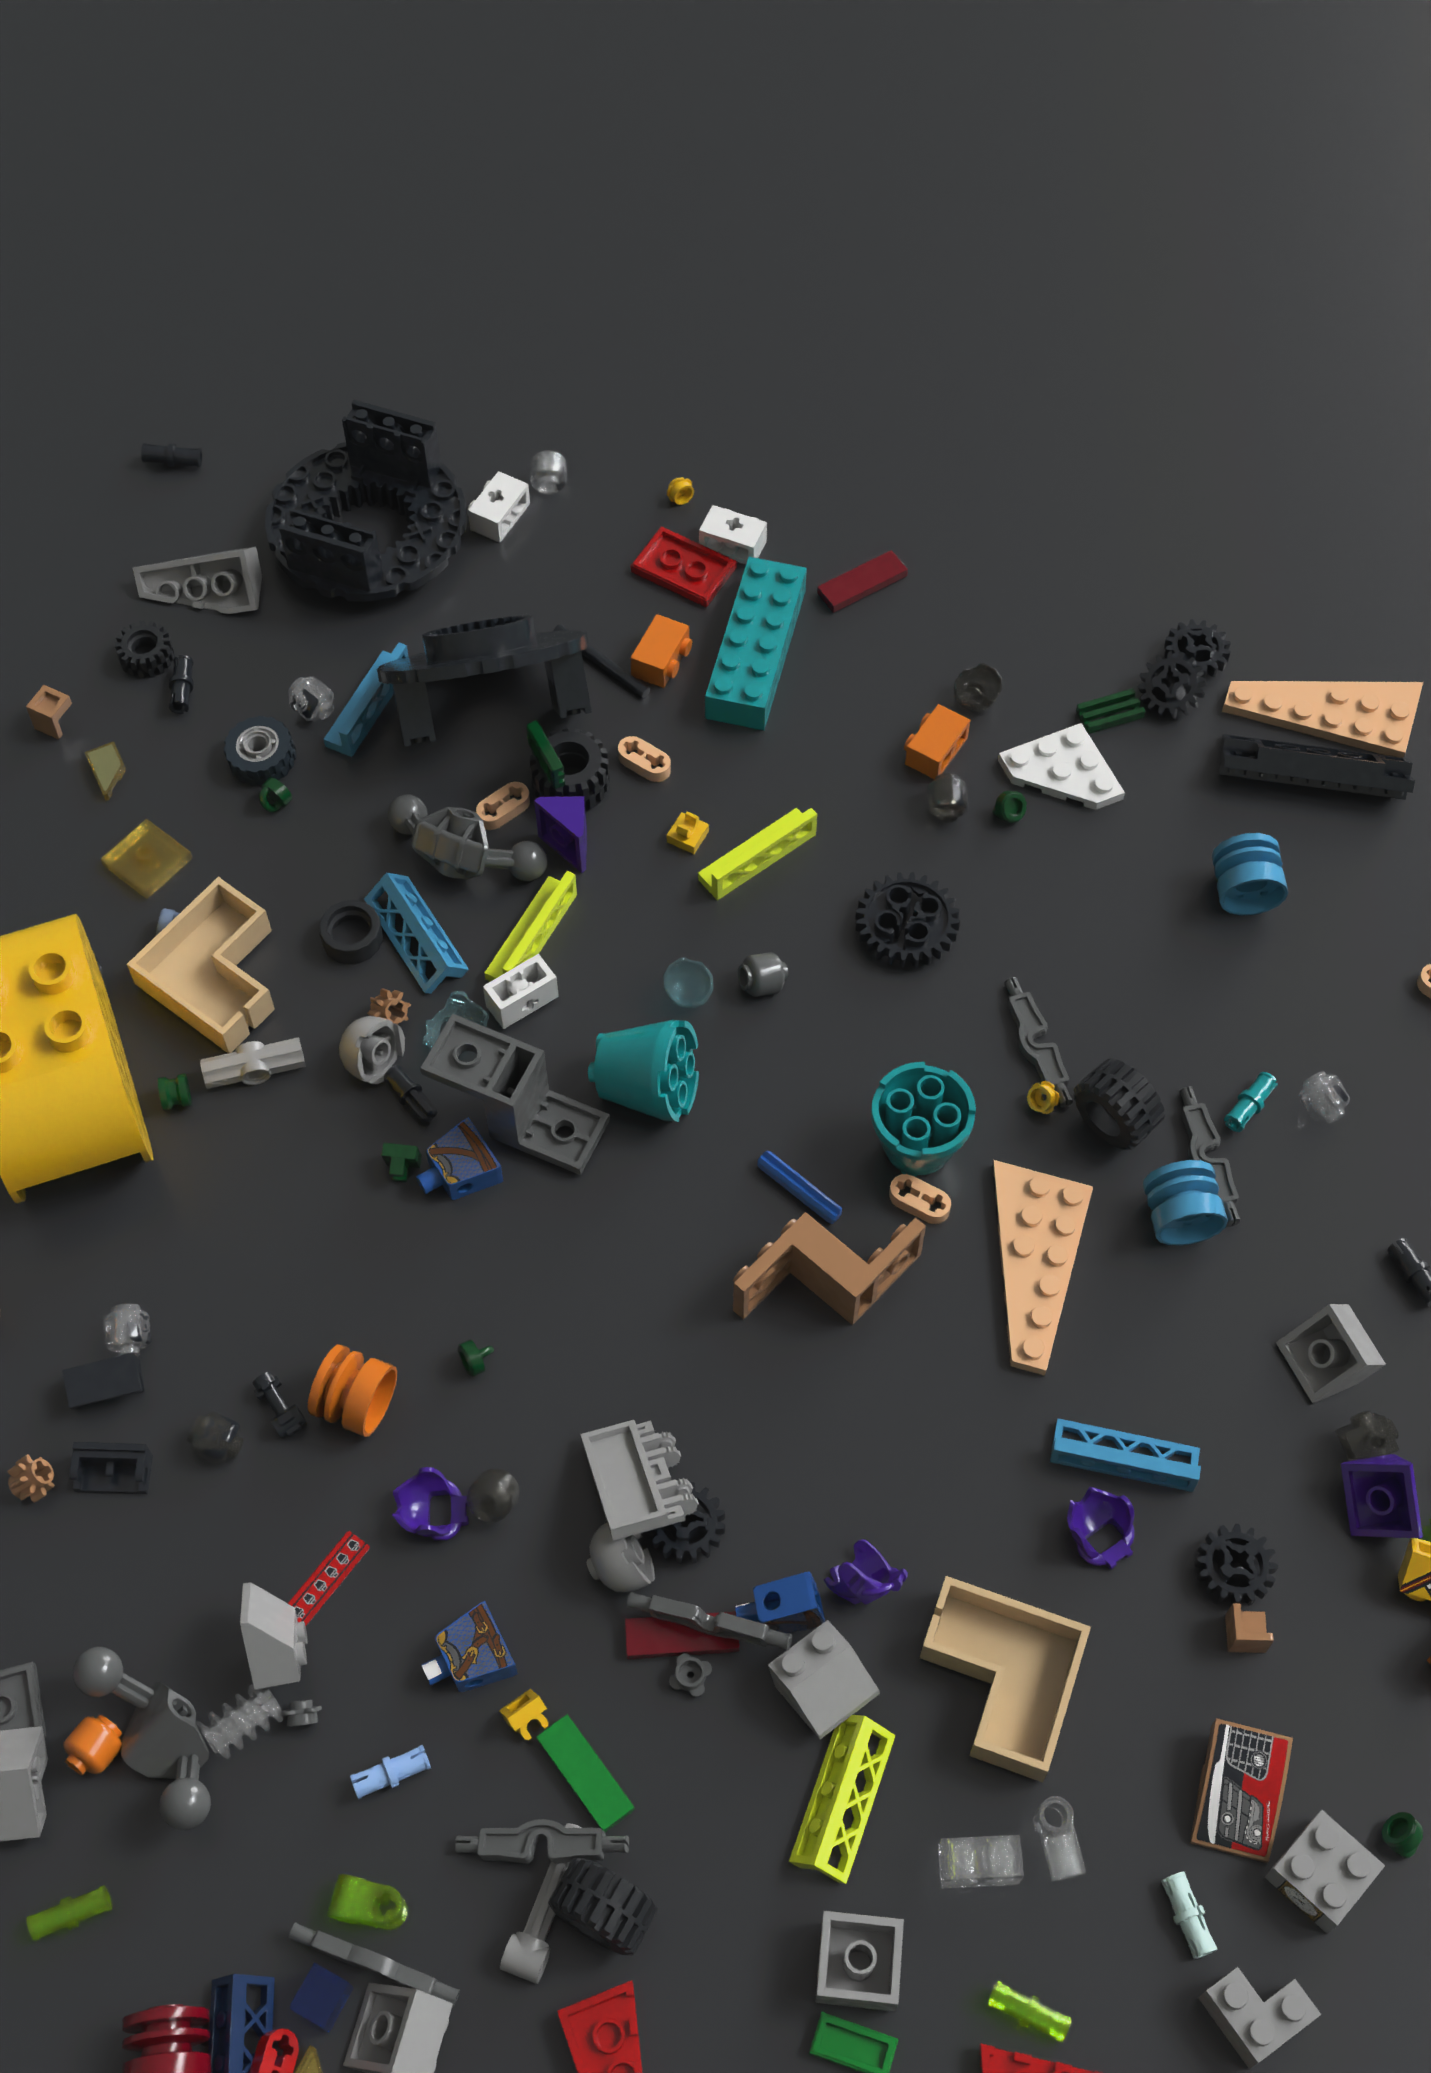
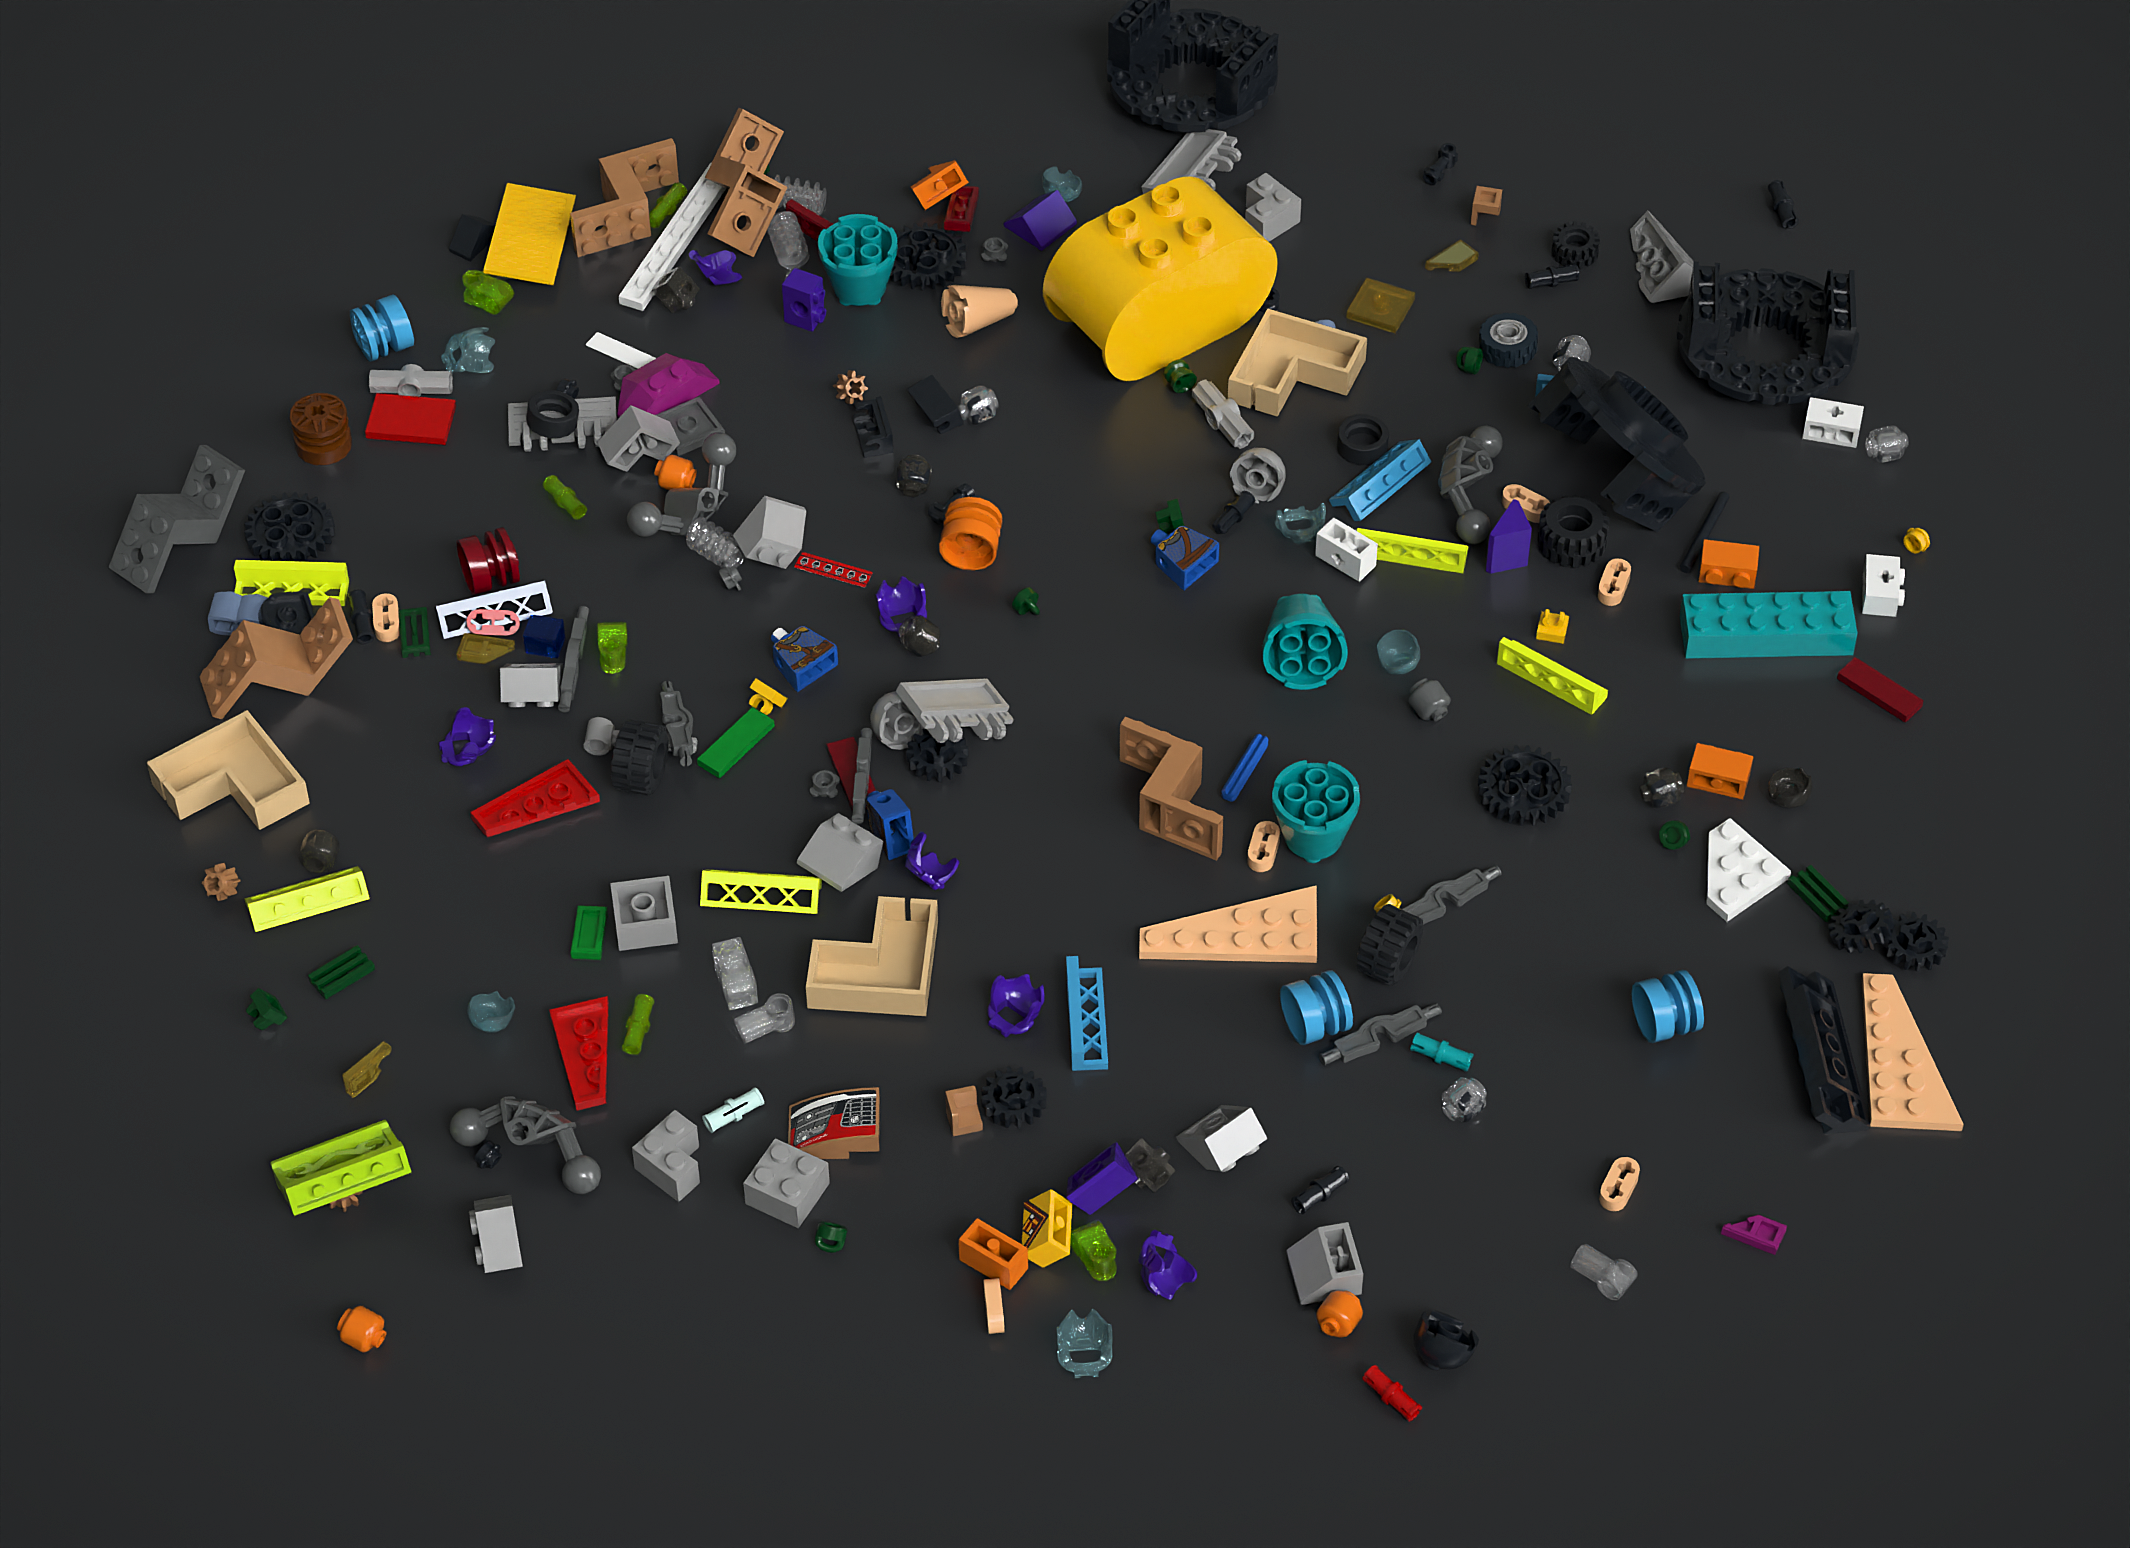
camera: 75 degrees right, 10 degrees down
(381, 1003) = (1300, 485): medium nougat gear -> none
(390, 1772) = (704, 634): light blue pin -> none
(515, 1093) = (1242, 558): dark grey bracket -> none
(545, 754) = (1563, 496): dark green tile -> none
(683, 566) = (1835, 561): red tile -> none

